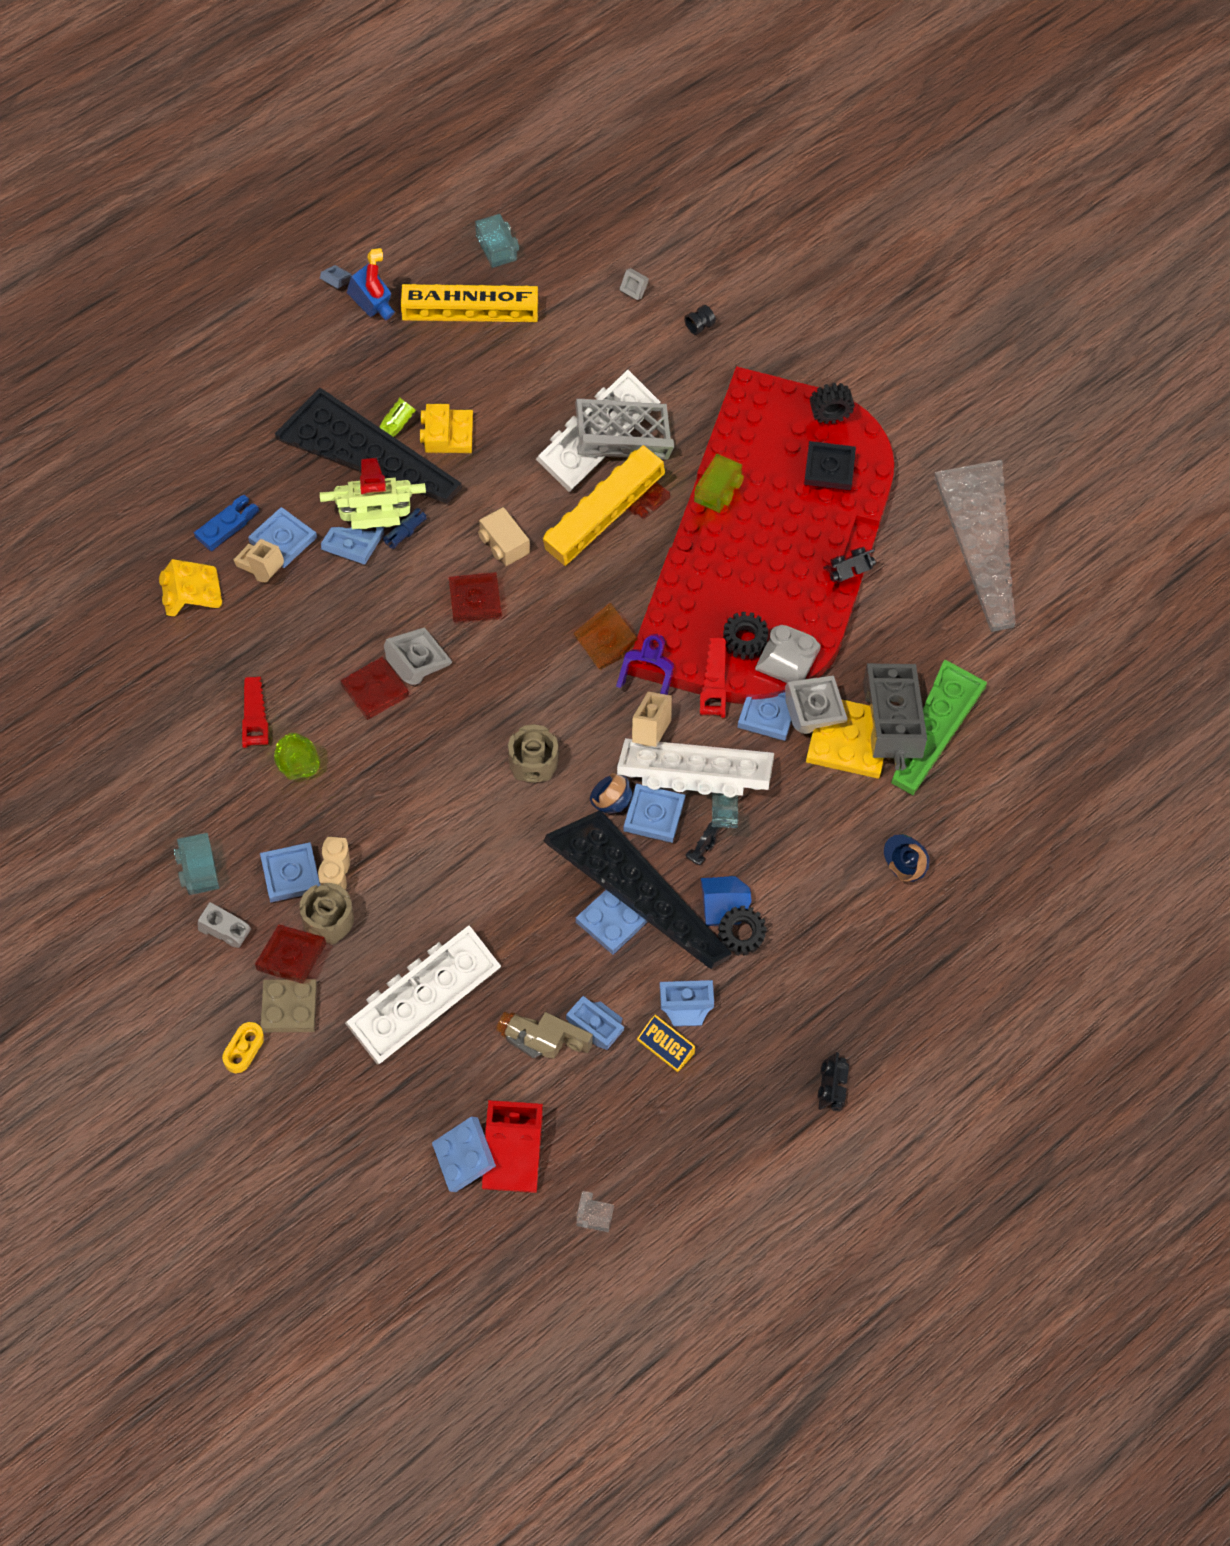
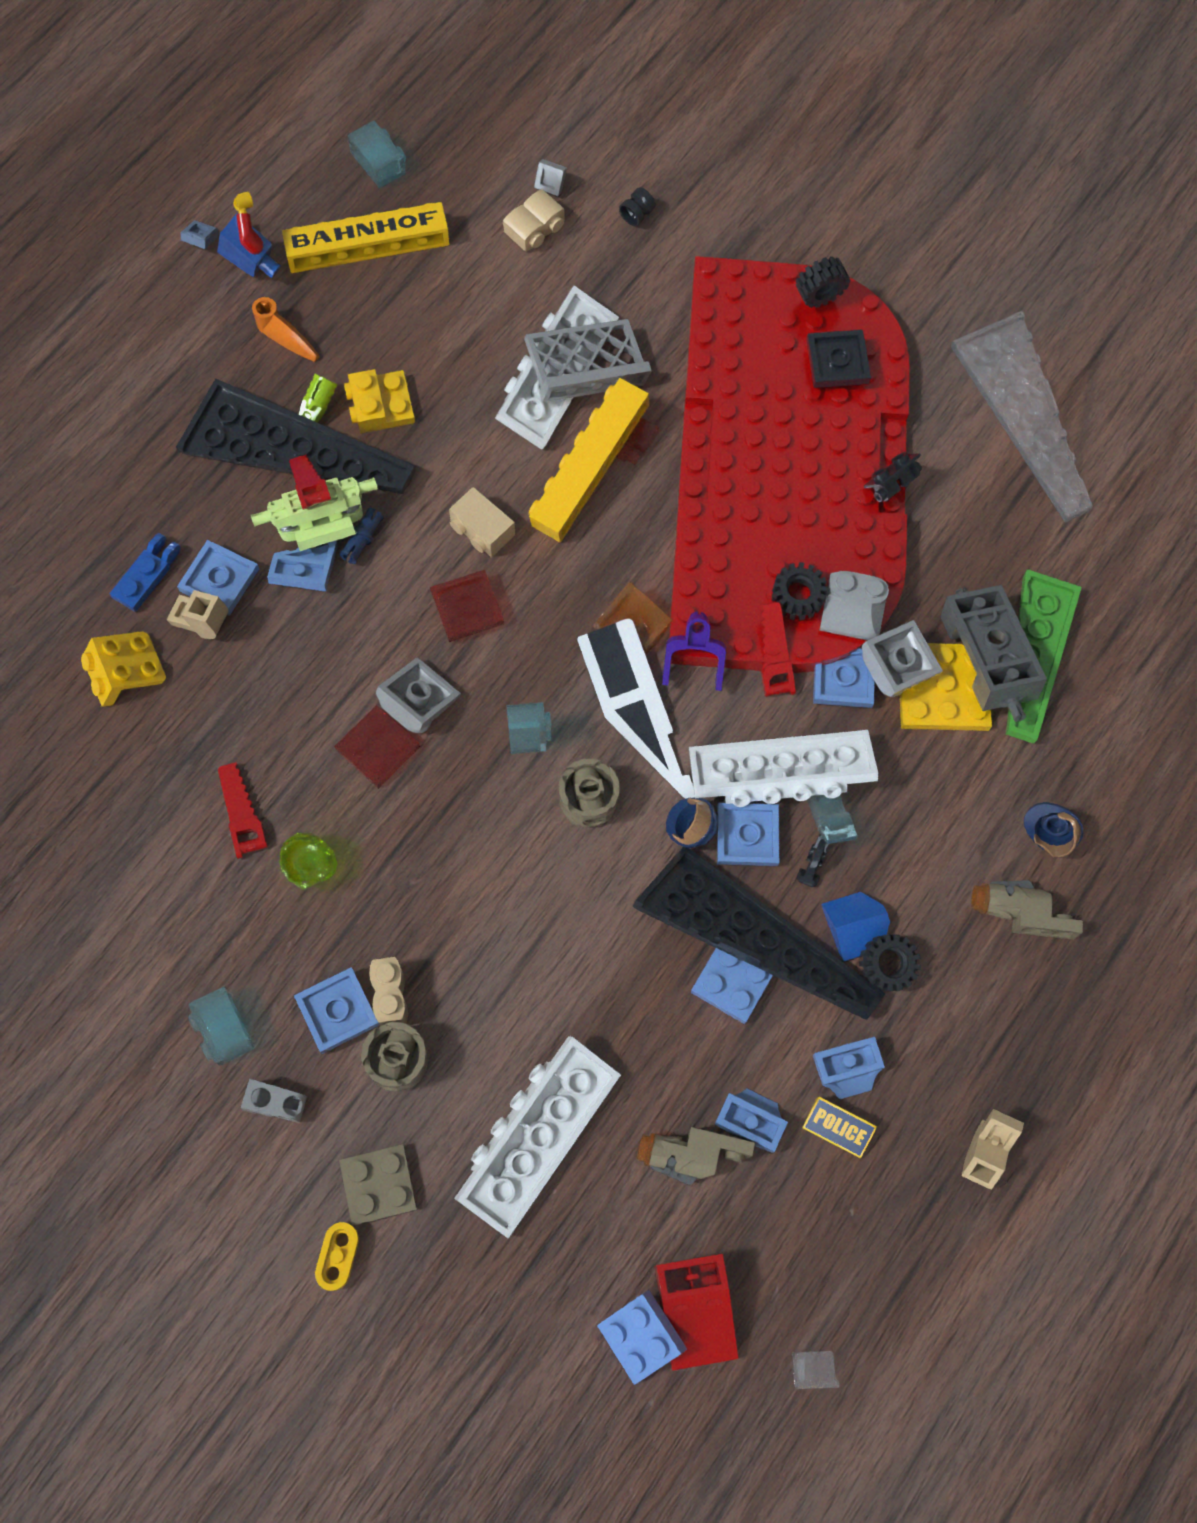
camera: 15 degrees left, 10 degrees up
(290, 954) = (364, 1120): clear red plate -> none
(382, 361) = (280, 329): none -> orange piece
(497, 695) = (528, 727): none -> clear light blue brick
(589, 691) = (631, 697): none -> white sticker
(611, 314) = (534, 220): none -> tan brick
(651, 719) = (717, 719): tan brick -> none
(718, 483) = (717, 407): clear neon green brick -> none
(784, 1082) = (990, 1148): none -> tan brick
(833, 1071) = (1040, 1117): black hinge -> none
(868, 914) = (1028, 907): none -> dark tan plate

